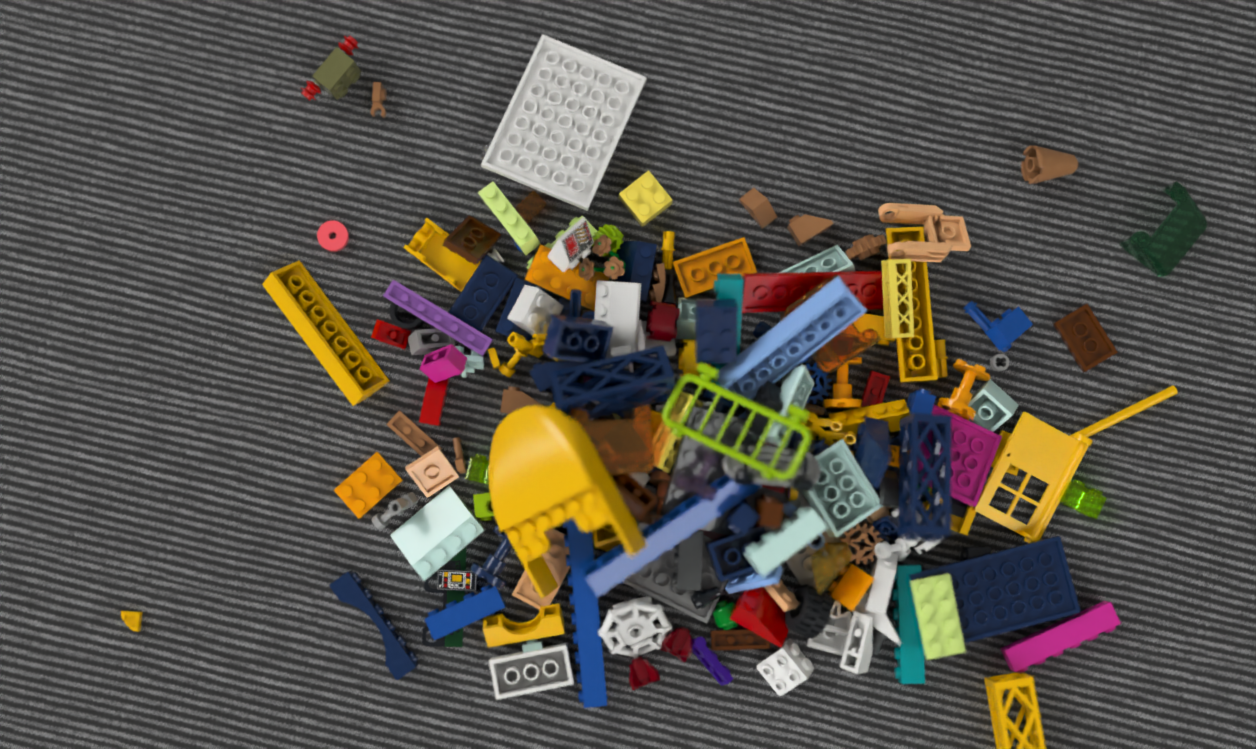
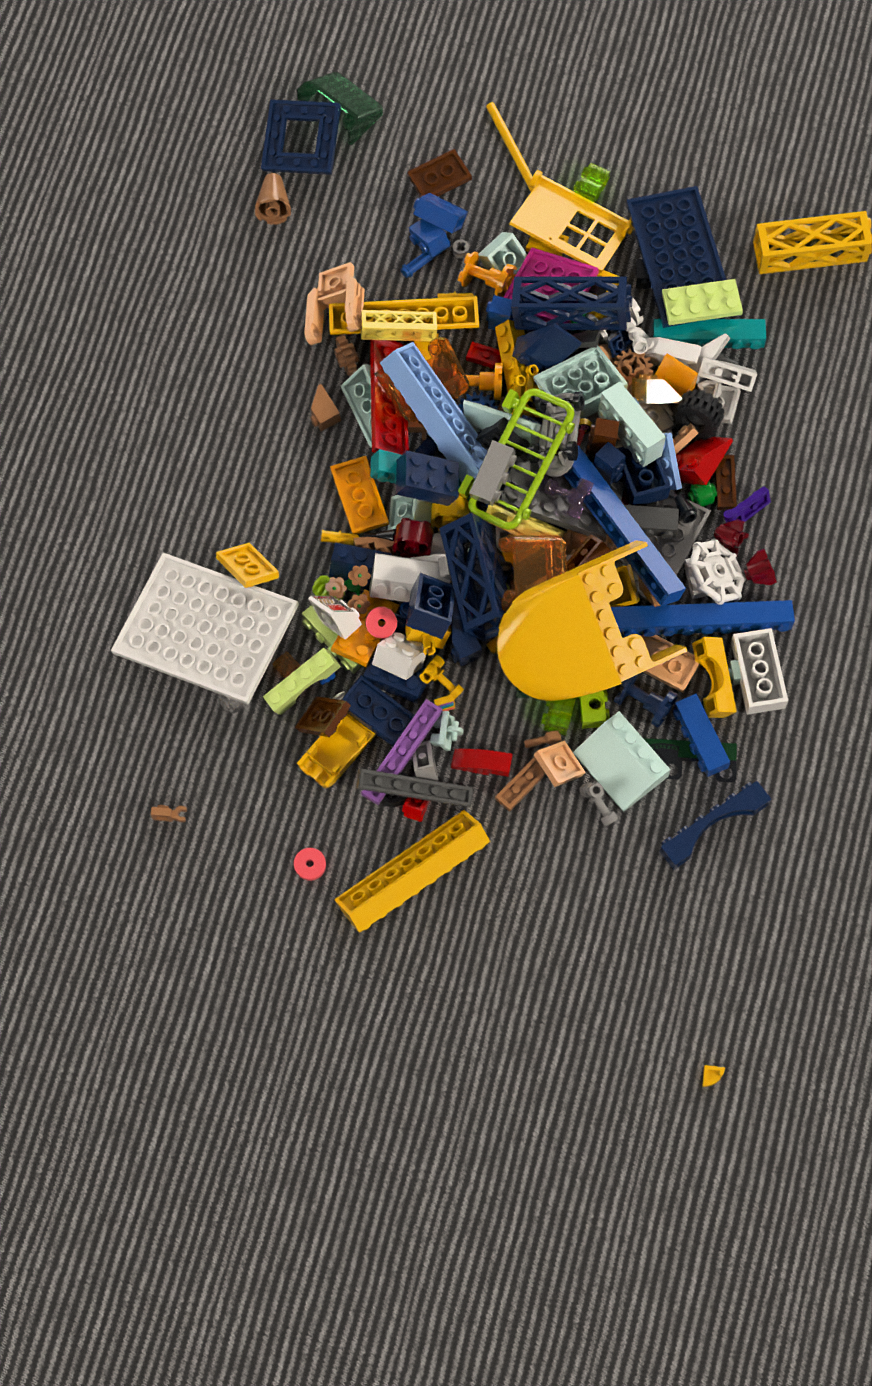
camera: 85 degrees left, 15 degrees down
(335, 73) = (139, 851): olive brick -> none
(368, 485) = (571, 831): light orange plate -> none
(400, 330) = (414, 788): none -> dark grey tile
(443, 363) = (449, 745): dark pink brick -> none
(456, 580) = (669, 744): tile -> none
(515, 399) = (490, 680): medium nougat slope -> none
(573, 291) = (372, 622): none -> coral piece
(630, 159) = (247, 565): none -> yellow plate
(645, 198) = (288, 555): light yellow brick -> none
(715, 397) = (493, 473): none -> light grey brick
(758, 207) = (299, 454): medium nougat slope -> none
(786, 668) = (754, 442): white bracket -> none
(1036, 338) = (440, 212): none -> blue brick
(1060, 636) = (720, 207): dark pink brick -> none
(1145, 216) = (319, 163): none -> dark blue plate

